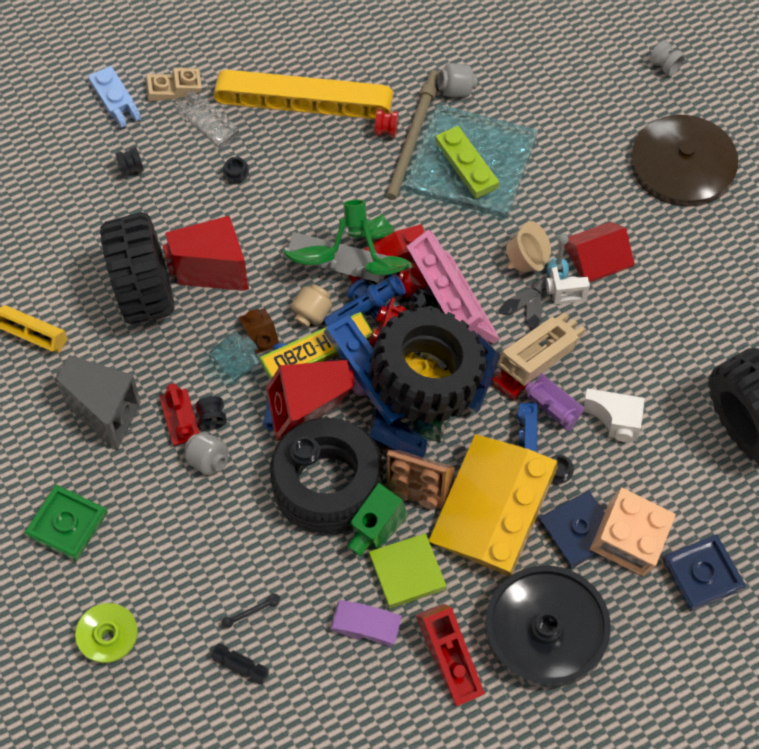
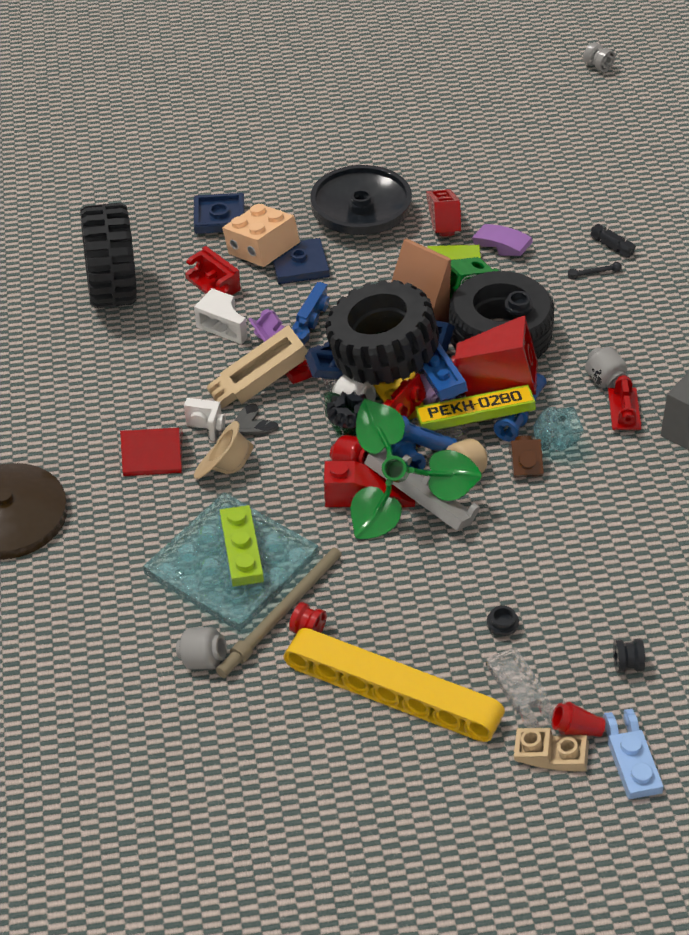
camera: 160 degrees left, 15 degrees down
(137, 268) = (644, 488): black tyre -> none
(158, 99) = (574, 720): none -> red cone
(207, 256) = (564, 513): red slope -> none
(211, 413) = (593, 397): black wheel -> none
(450, 285) = (320, 417): bright pink fence -> none
(494, 503) = (351, 261): yellow slope -> none
(559, 262) = (200, 436): hinge -> none
(564, 469) = (293, 296): black plate -> none
(656, 473) = (213, 272): none -> red hinge

